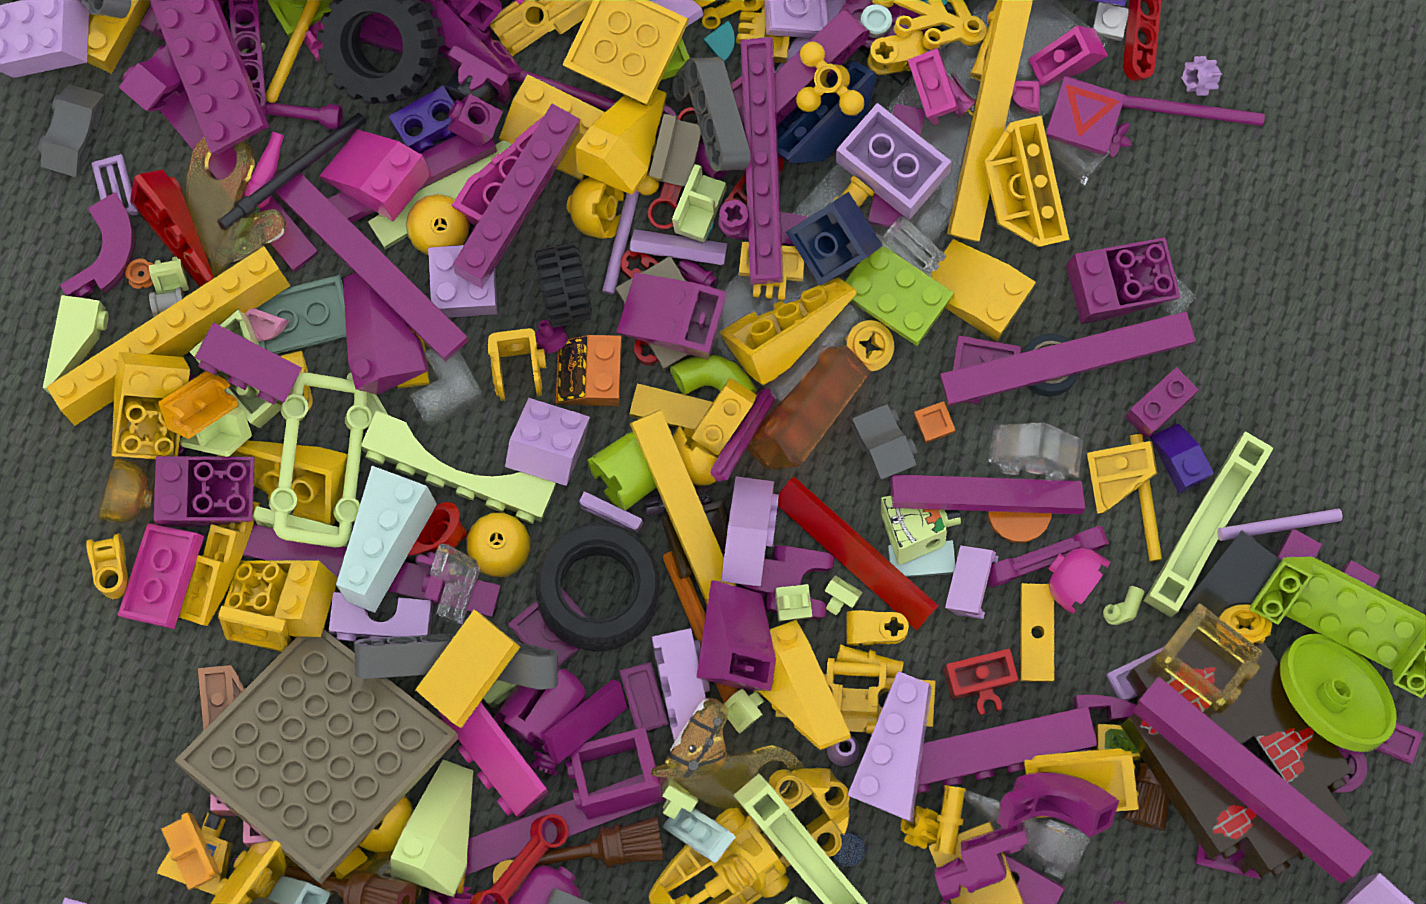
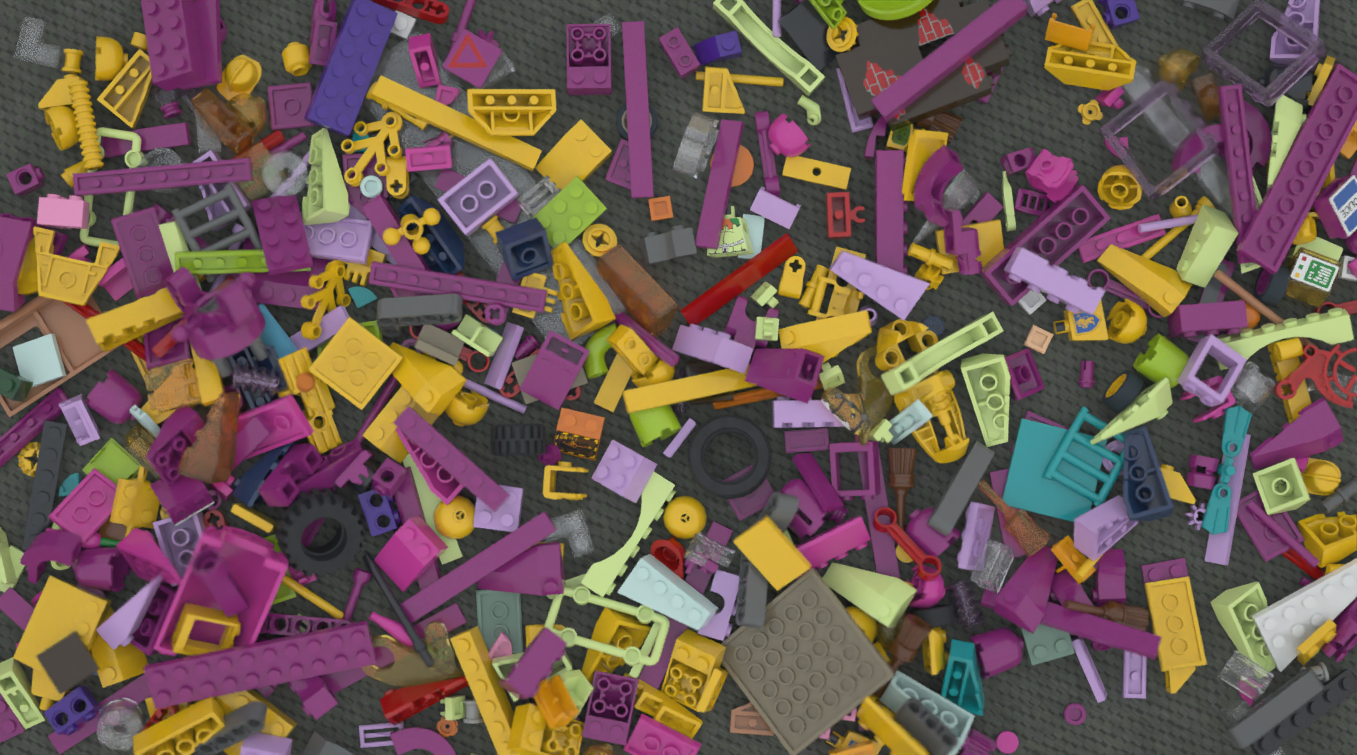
camera: 75 degrees left, 10 degrees up
(1226, 638) = (847, 51): clear yellow window -> none

